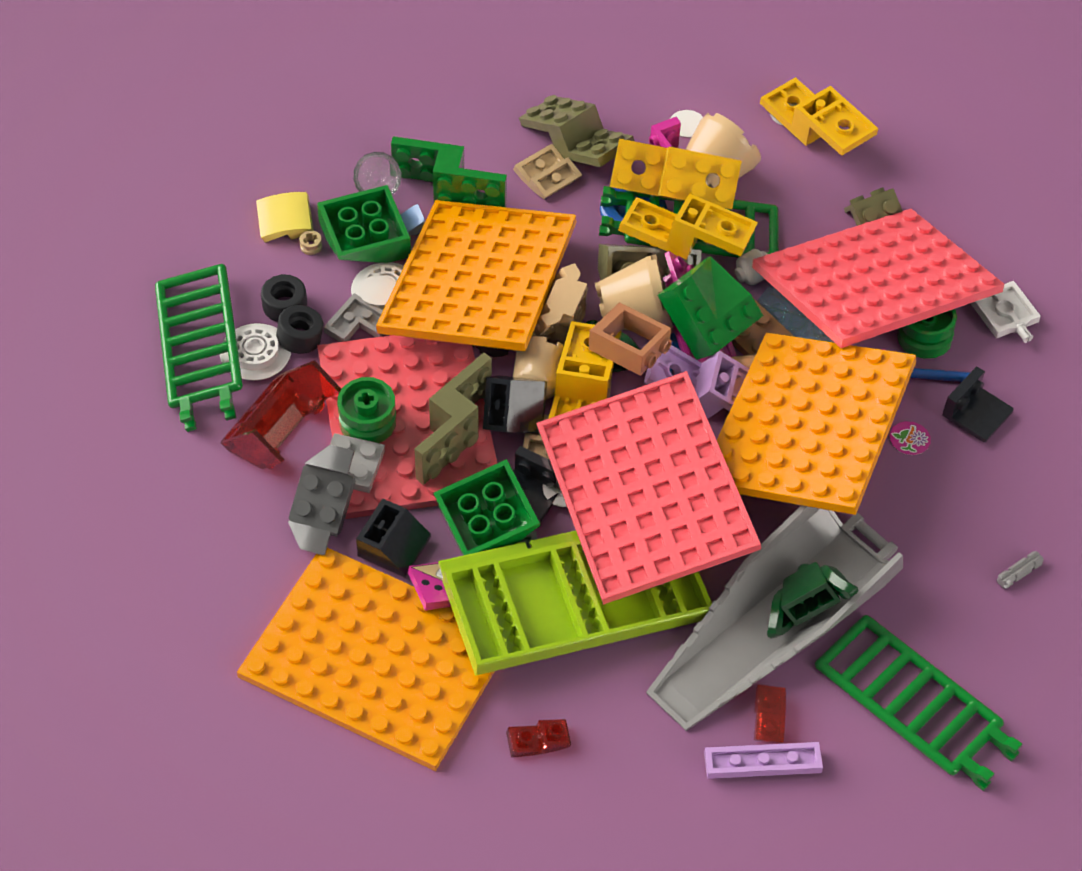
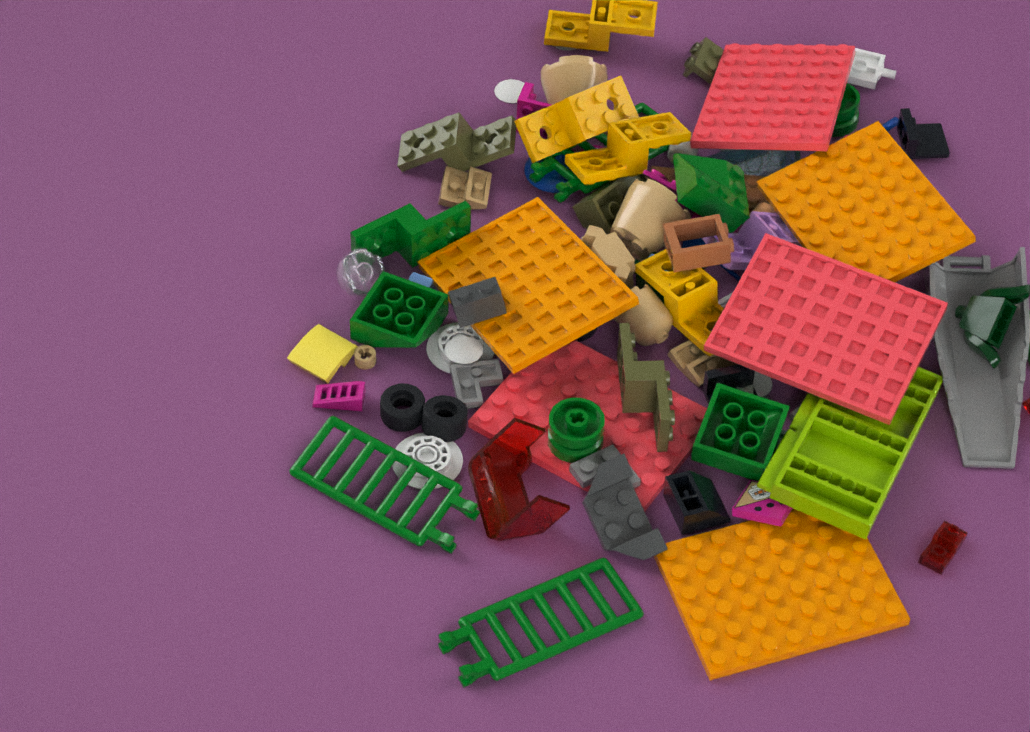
camera: 45 degrees left, 5 degrees down
(117, 495) = (487, 665): none -> green bar
(261, 270) = (353, 400): none -> dark pink slope
(417, 257) = (477, 302): none -> dark grey slope
(514, 404) = (666, 343): black slope -> none

